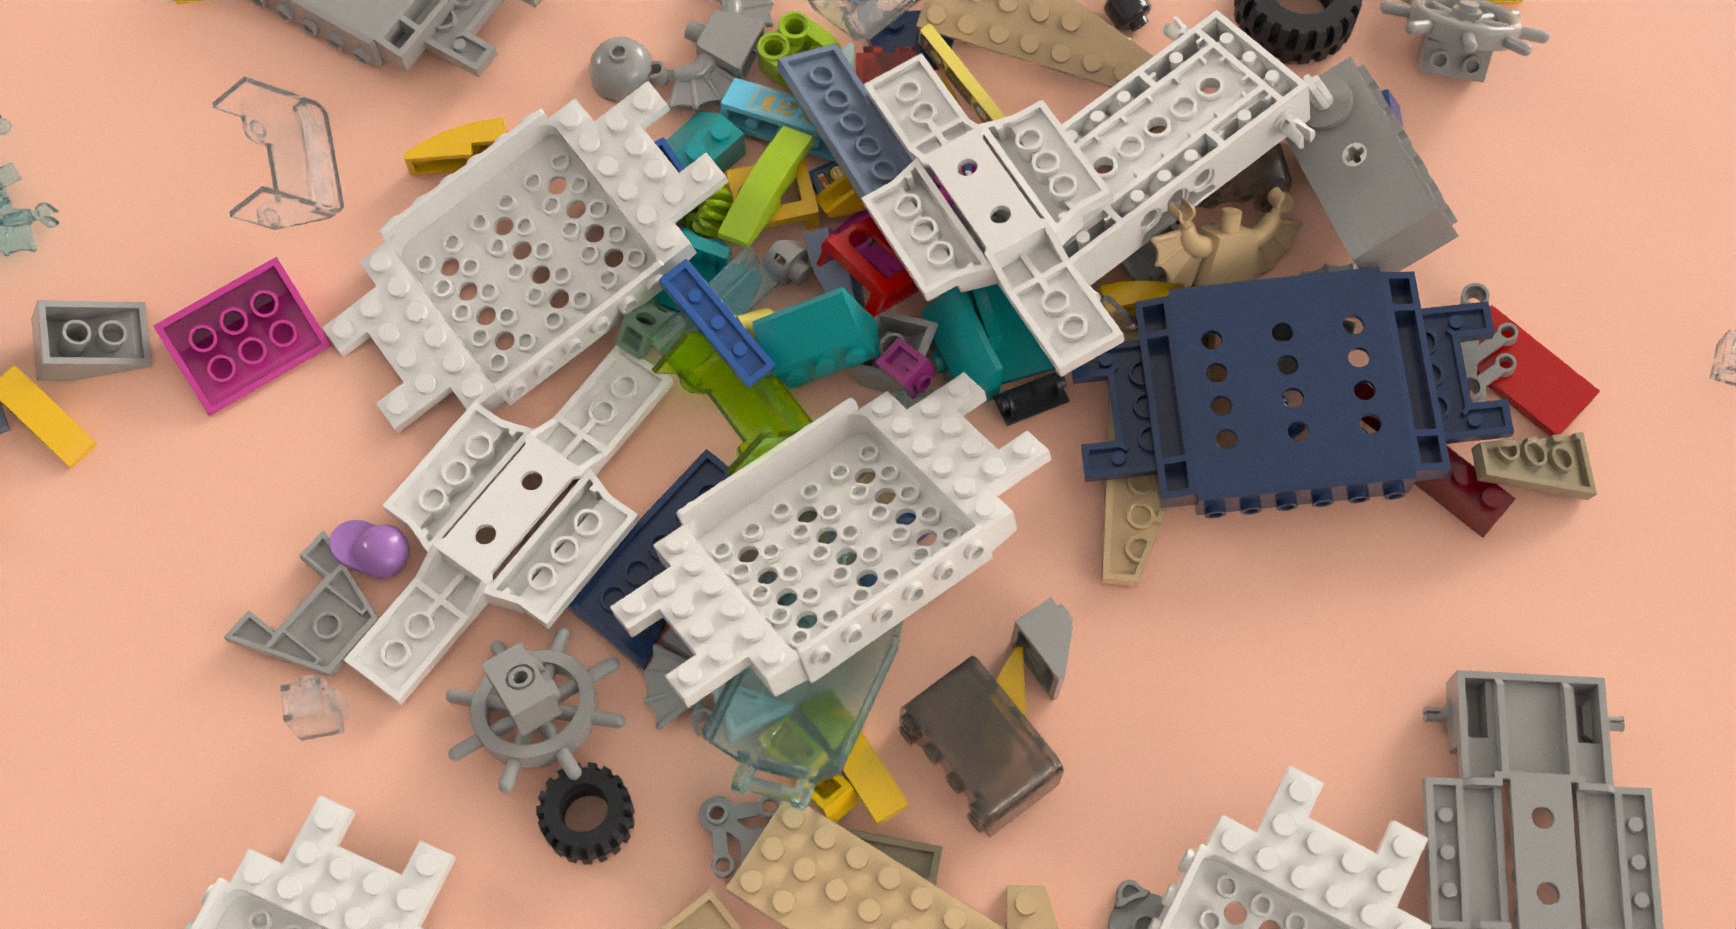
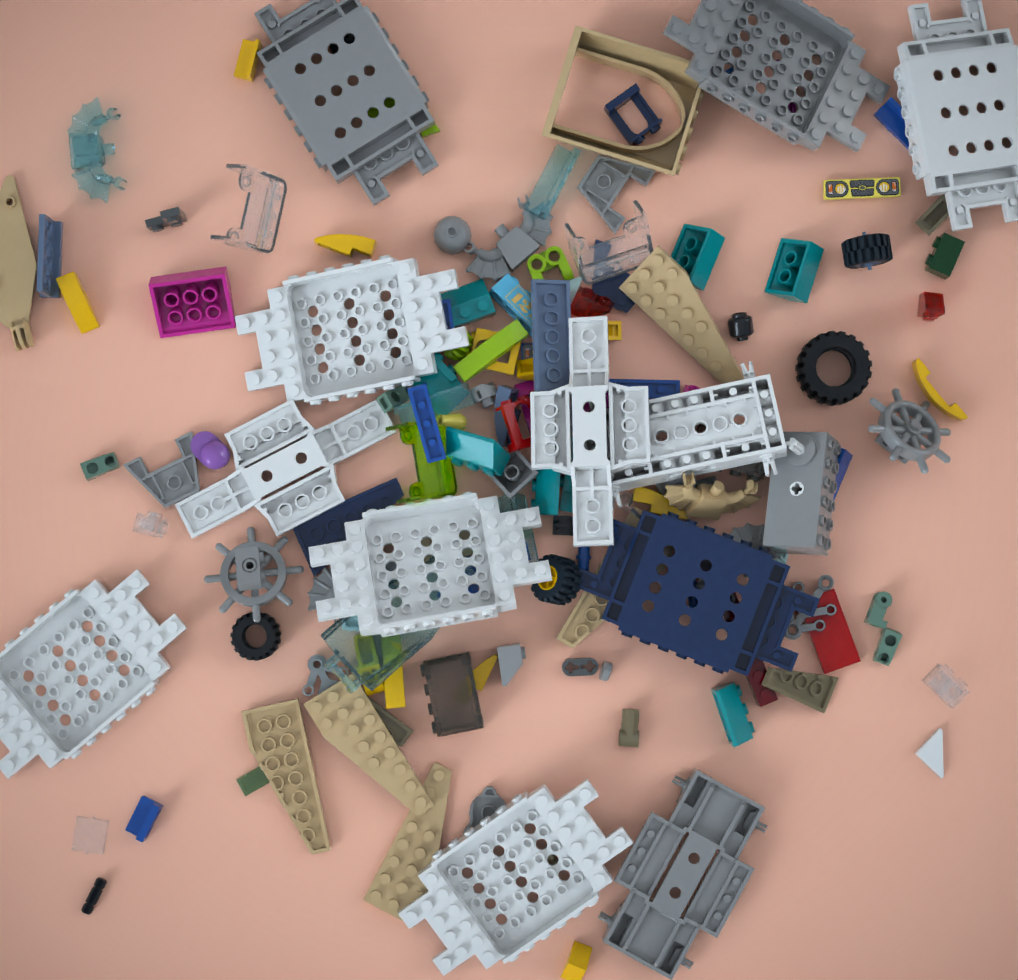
camera: 30 degrees right, 20 degrees up
(89, 339) = (116, 268): light grey slope -> none
(155, 226) = (170, 217): none -> dark grey plate
(182, 658) = (99, 466): none -> sand green leg
(907, 367) = (510, 490): magenta bracket -> none
(958, 75) = (627, 332): light yellow tile -> none
(1061, 486) = (564, 581): none -> black wheel
(1072, 429) = (583, 557): none -> blue pin
(1162, 602) = (581, 671): none -> dark grey beam
(1212, 594) = (605, 671): none -> light grey tile
(1307, 676) = (629, 728): none -> dark tan piece
(1453, 562) = (733, 713): none -> teal slope
(1578, 306) = (877, 610): none -> sand green leg
(1625, 348) = (887, 646): none -> sand green leg

